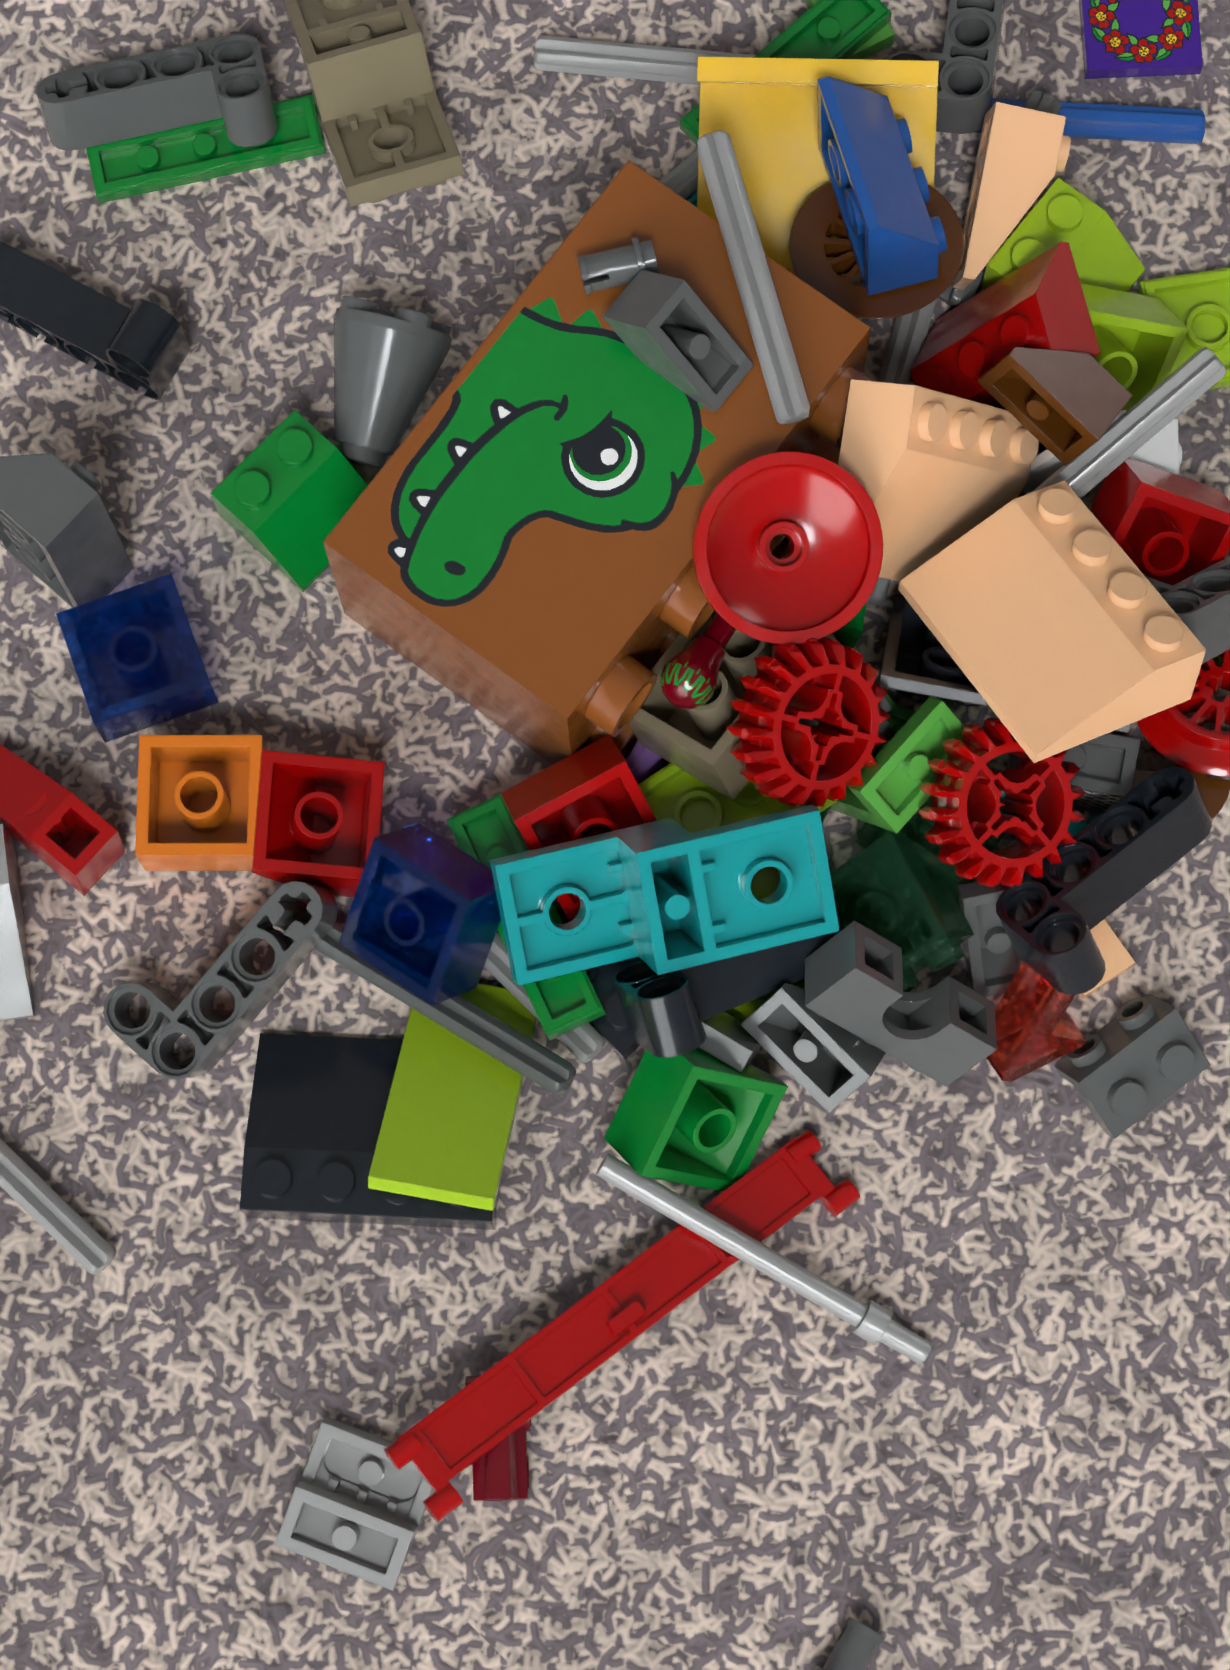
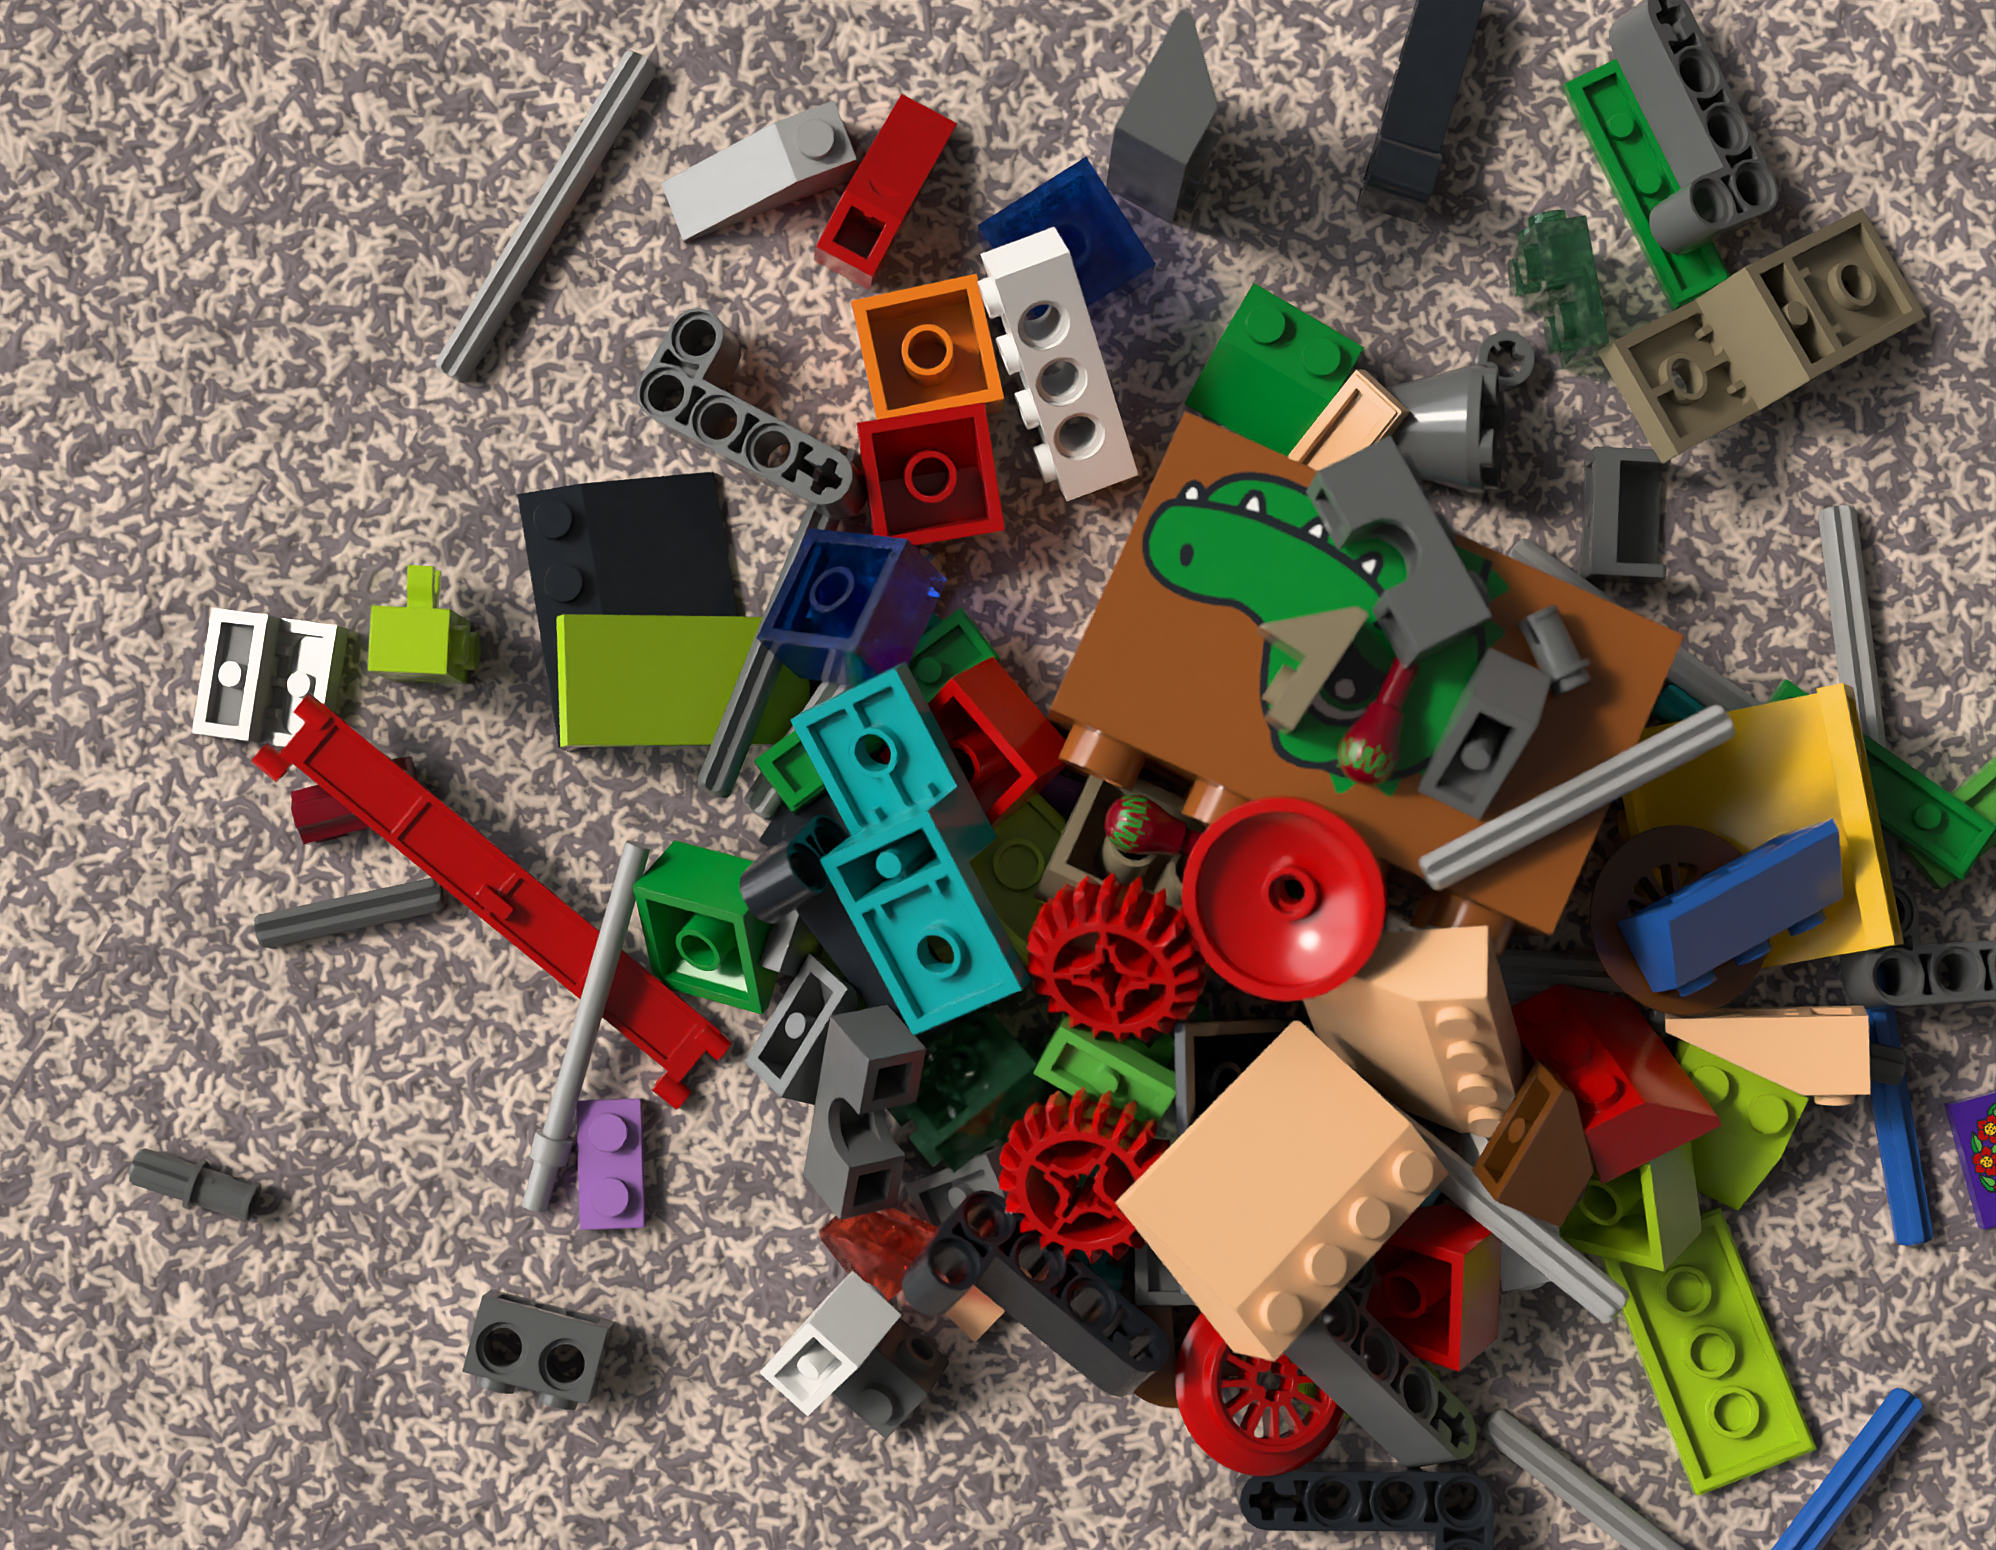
camera: 75 degrees right, 10 degrees up
(158, 682) = (1041, 273): none -> white brick
(269, 227) = (1559, 273): none -> clear green plate
(327, 287) = (1520, 351): none -> dark grey bush
(357, 1333) = (421, 639): none -> lime brick
(361, 430) = (1353, 420): none -> light nougat tile
(448, 378) = (1381, 498): none -> dark grey arch
(497, 231) = (1621, 516): none -> dark grey panel
(572, 465) = (1318, 645): none -> dark tan slope
(603, 1473) = (348, 913): none -> dark grey axle
(666, 437) = (1372, 745): none -> dark red piece
(899, 1269) = (611, 1163): none -> medium lavender plate
(1049, 1365) = (541, 1331): none -> dark grey brick
(1112, 1081) = (831, 1343): none -> white slope

